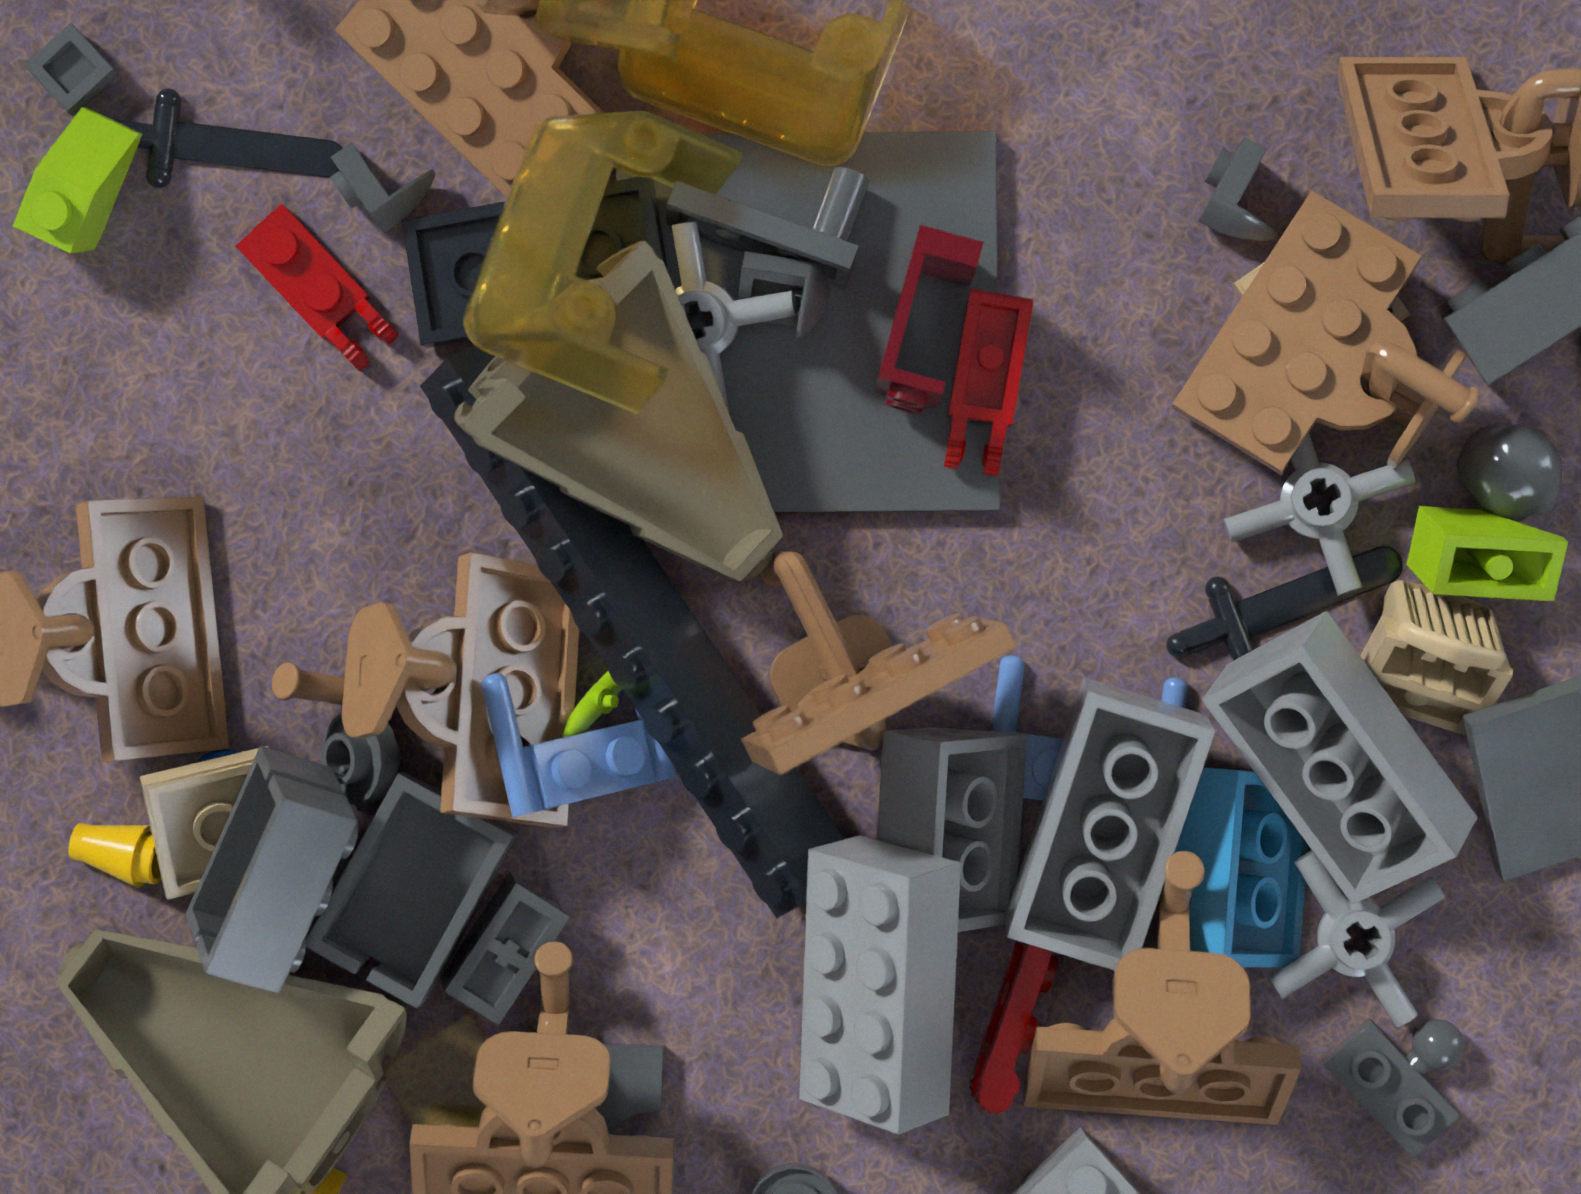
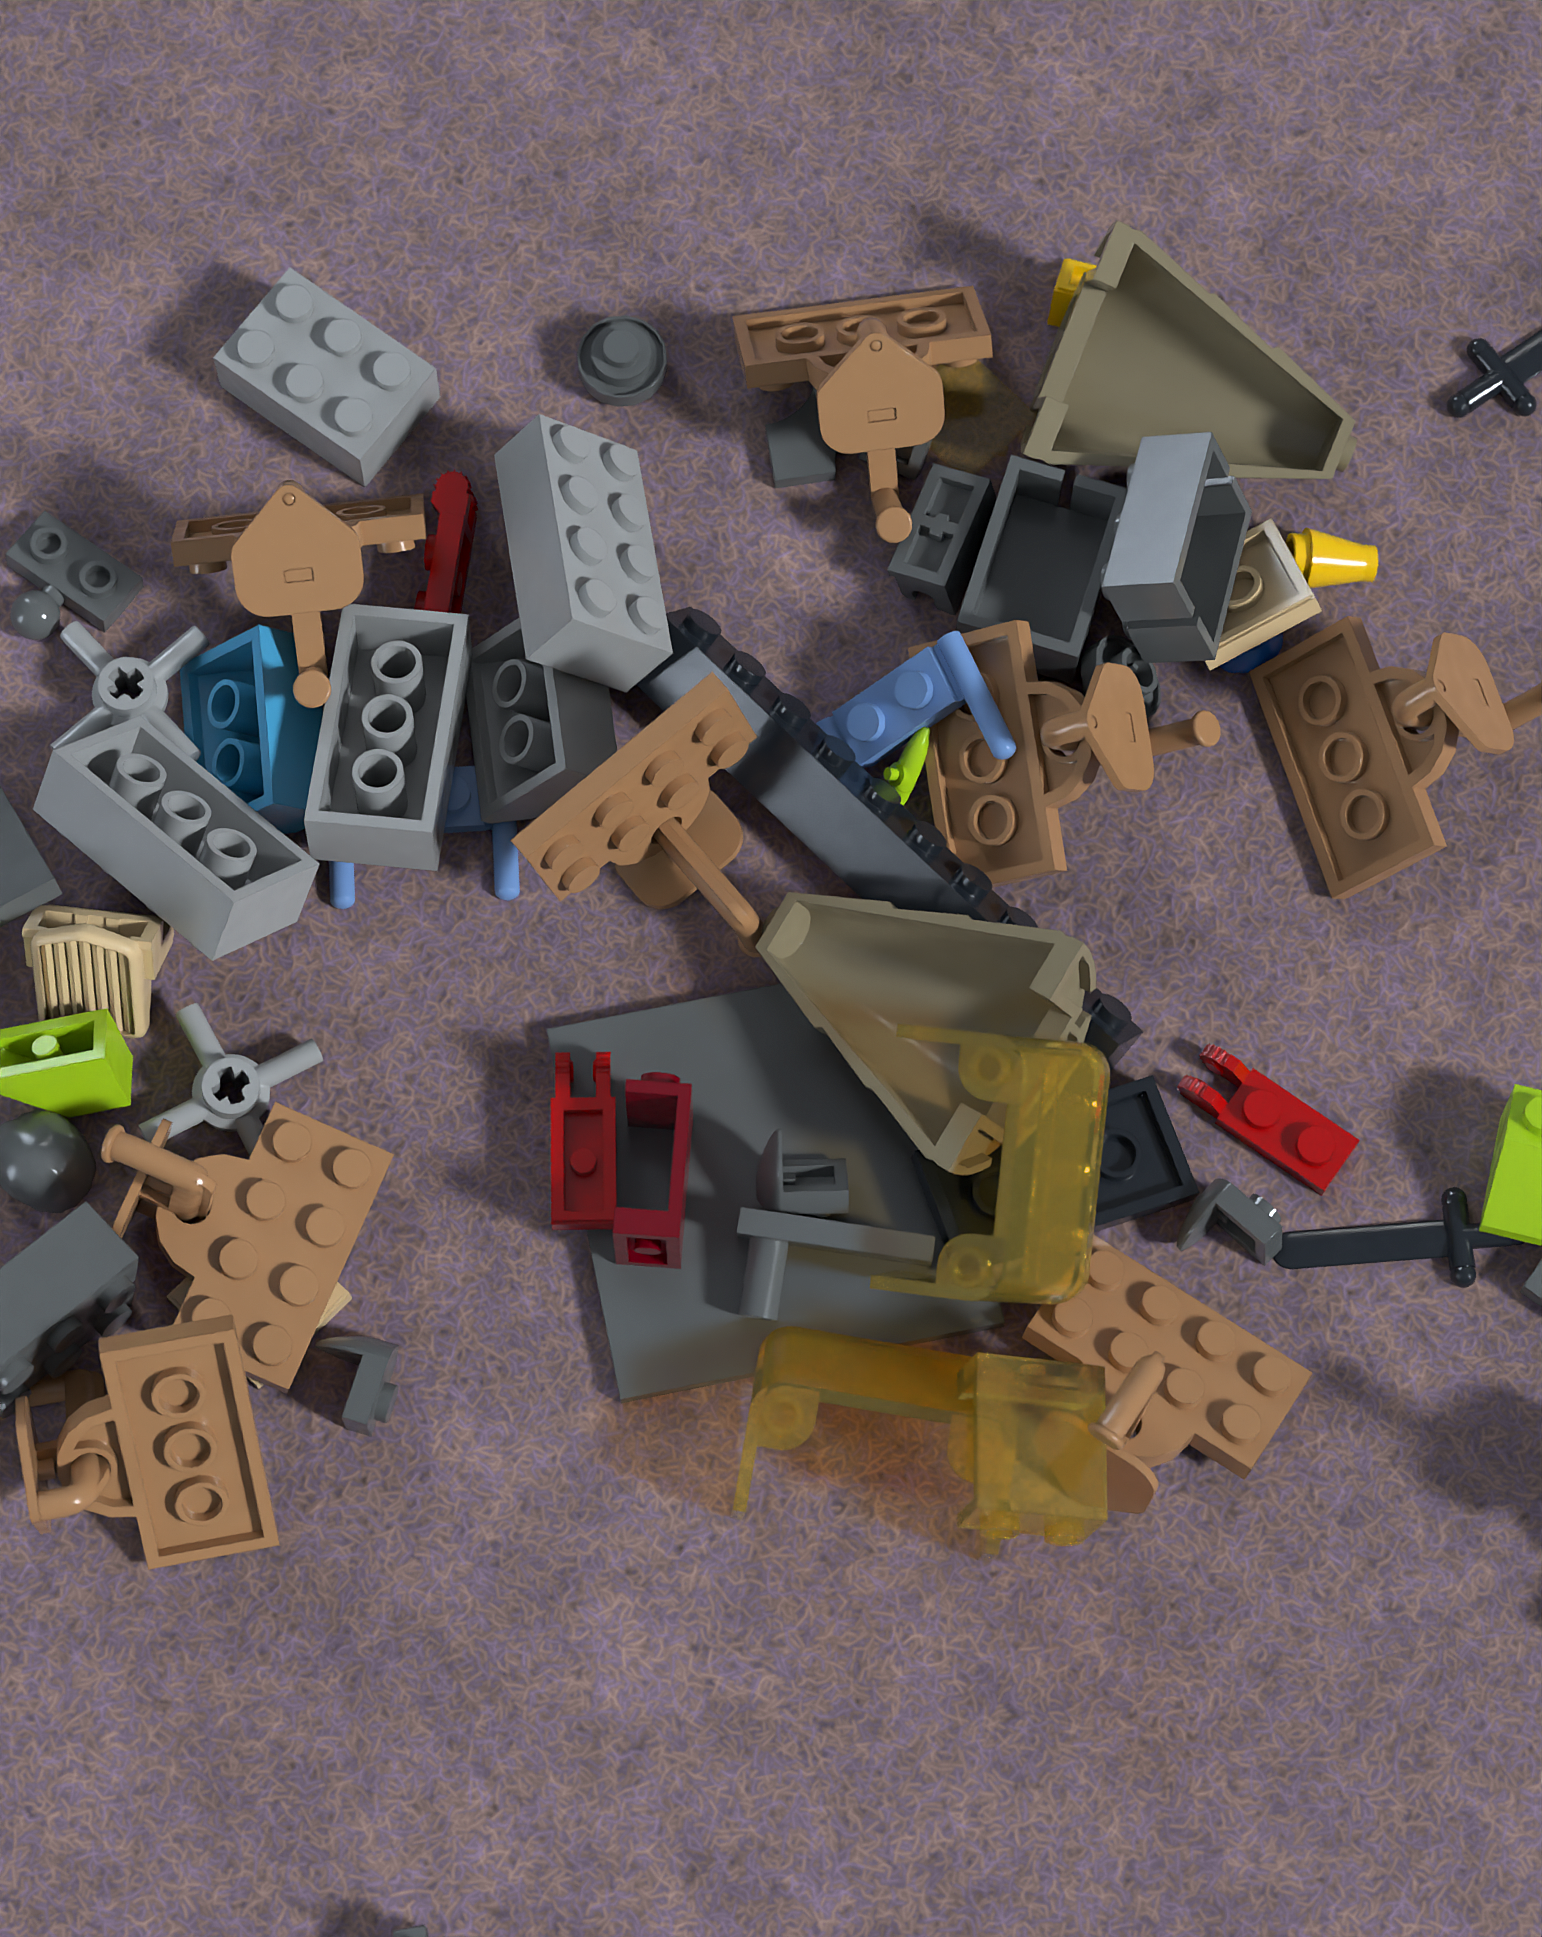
camera: 165 degrees right, 15 degrees down
(726, 312) = (871, 1146): light grey bar -> none
(1243, 619) = (289, 972): black sword -> none

